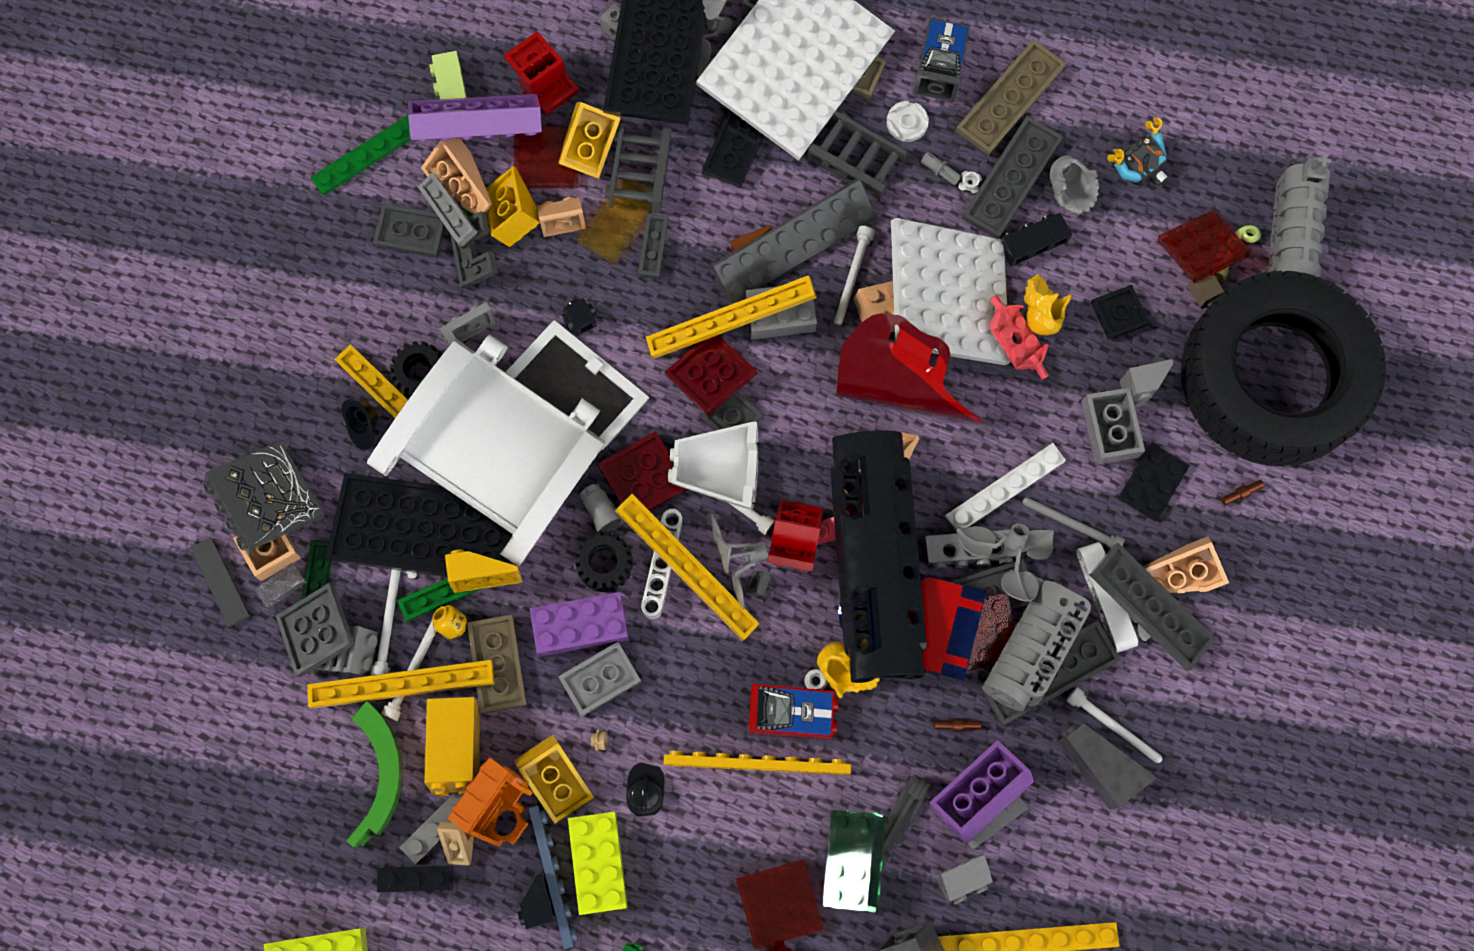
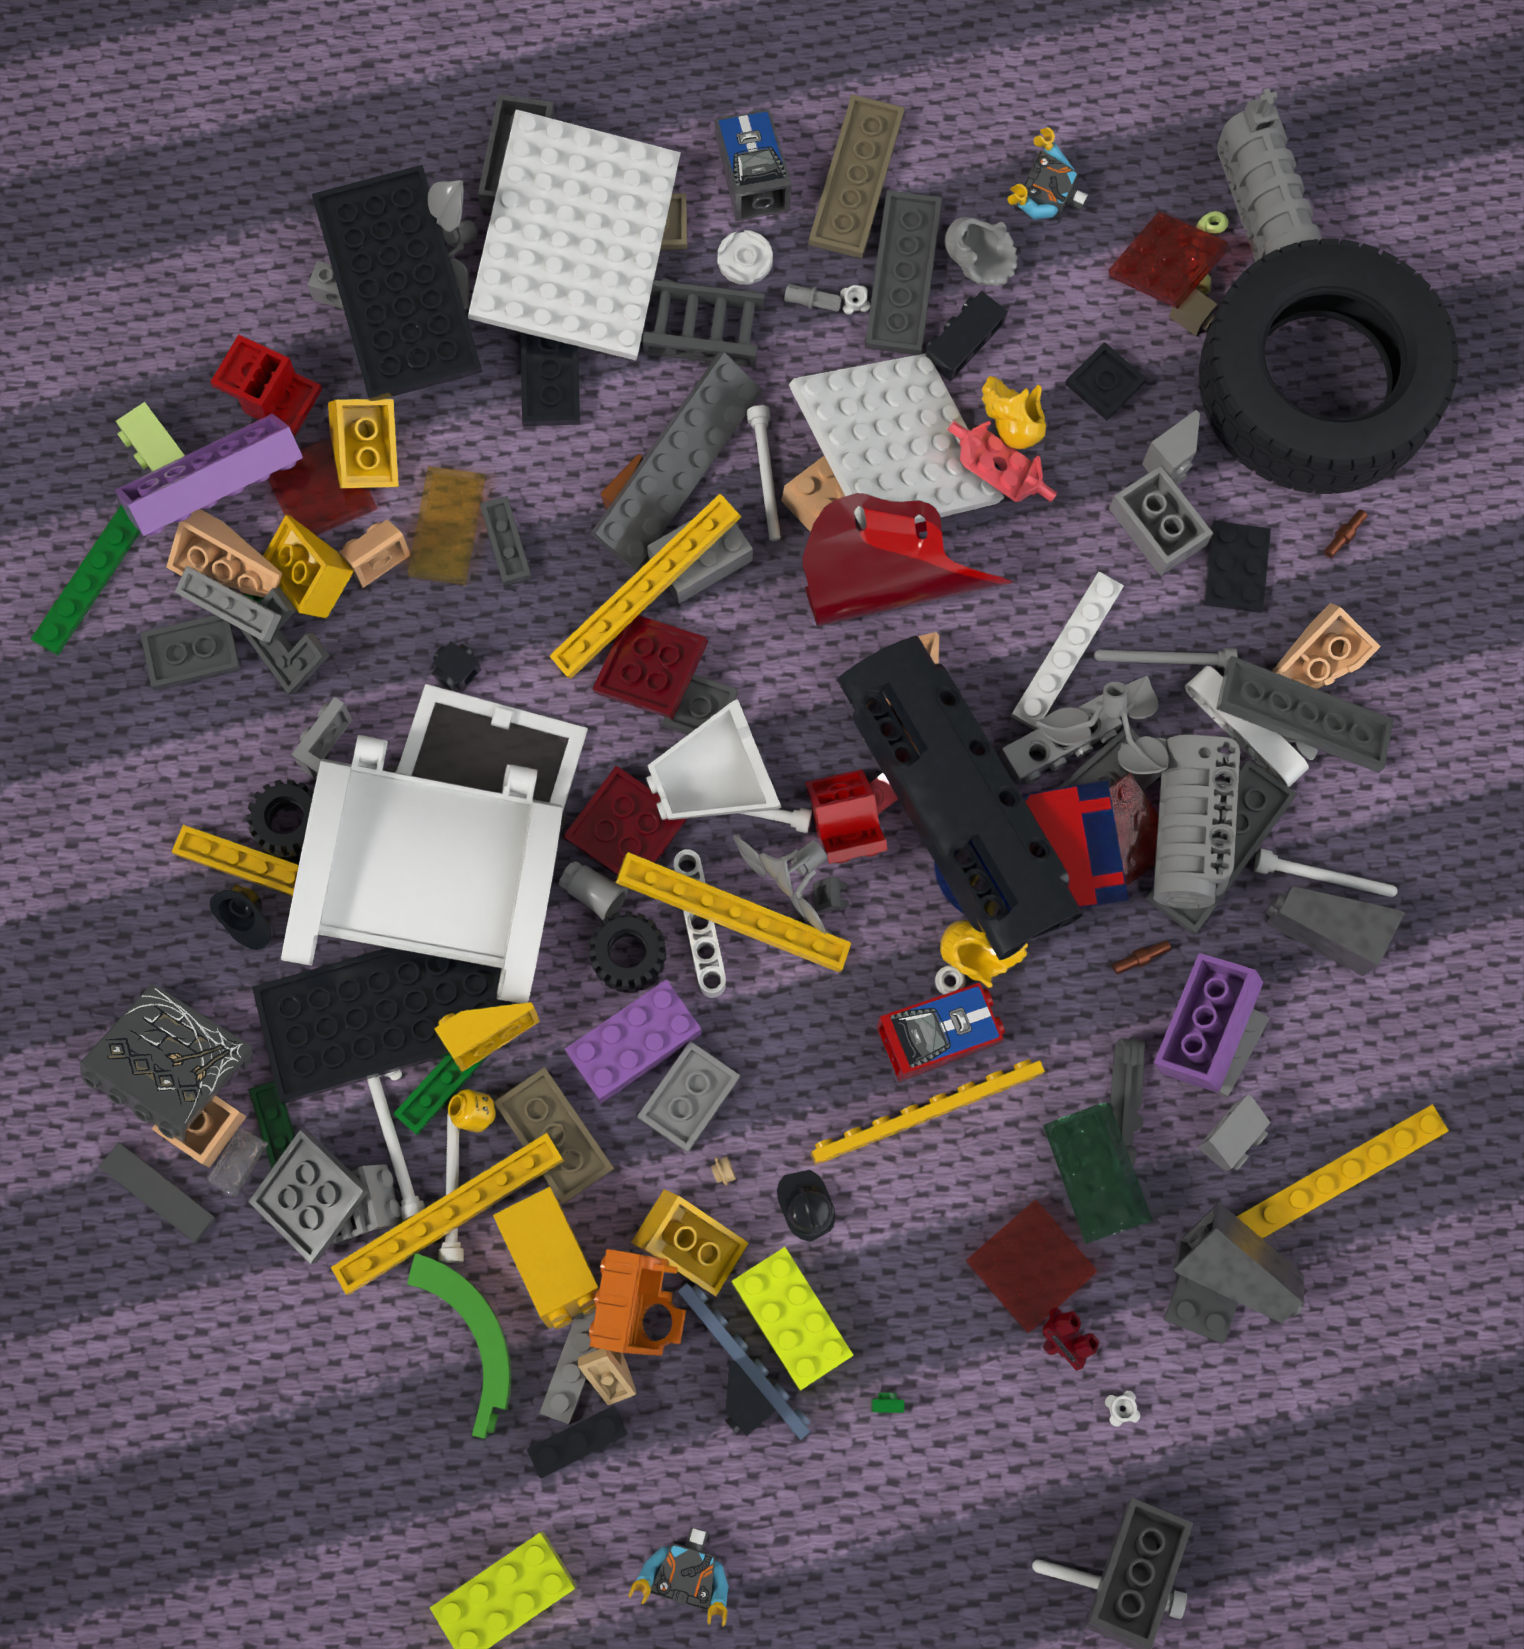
camera: 25 degrees left, 0 degrees up
(656, 178) = (464, 432): dark grey fence -> none

